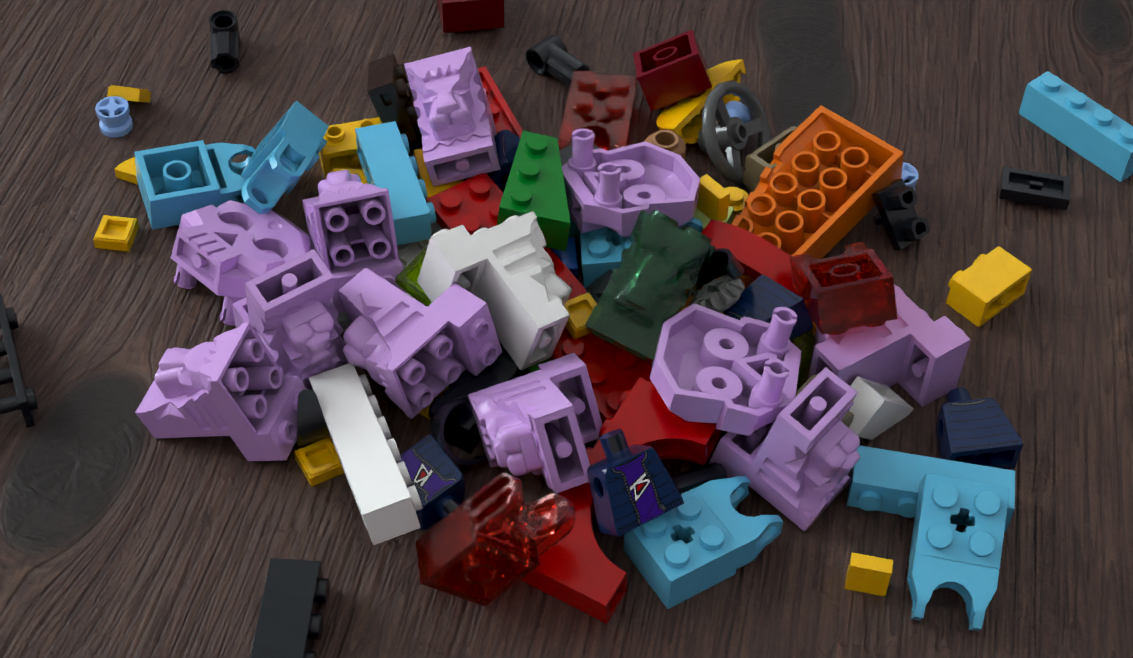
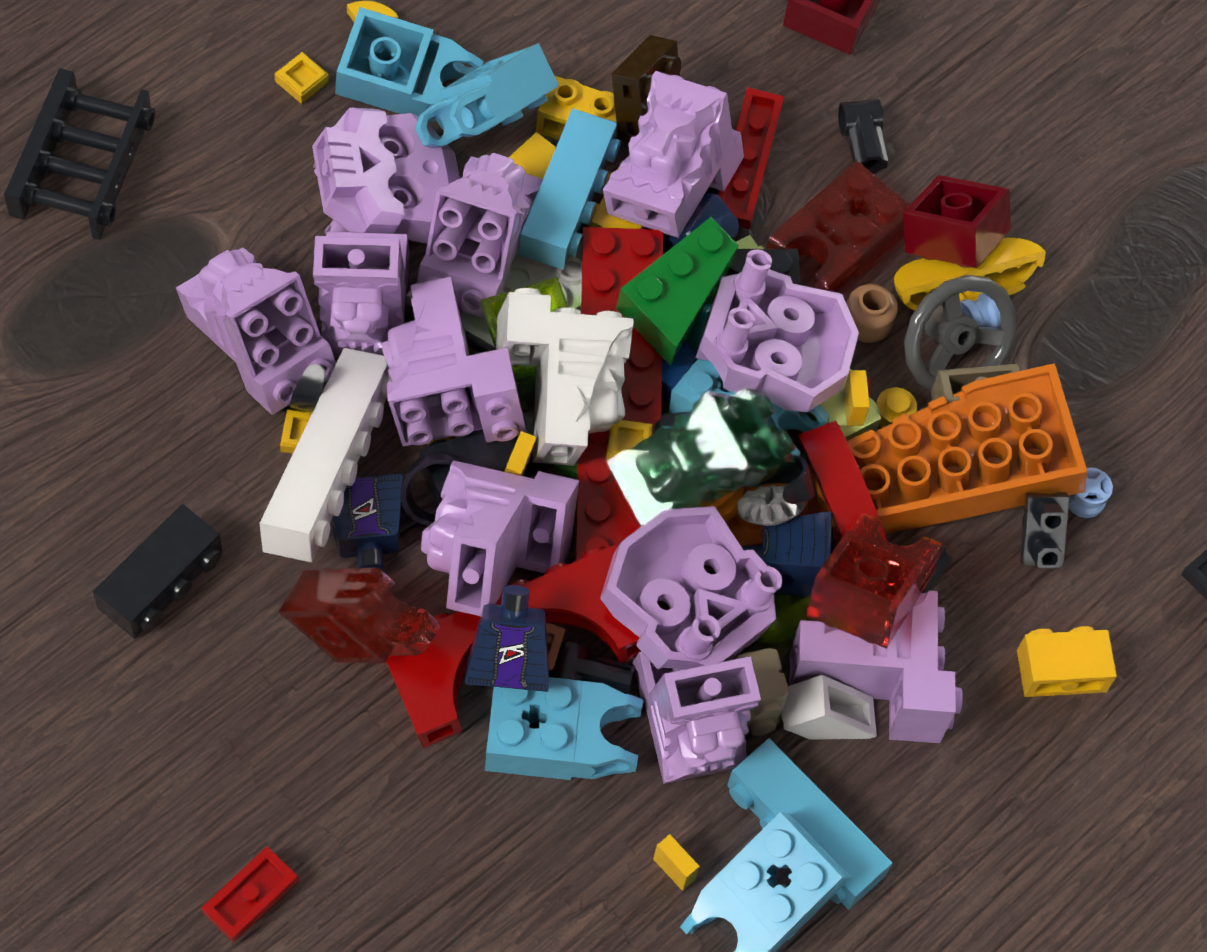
camera: 30 degrees right, 15 degrees up
(513, 360) = (521, 454): none -> yellow tile
(976, 432) = (900, 800): dark blue torso -> none

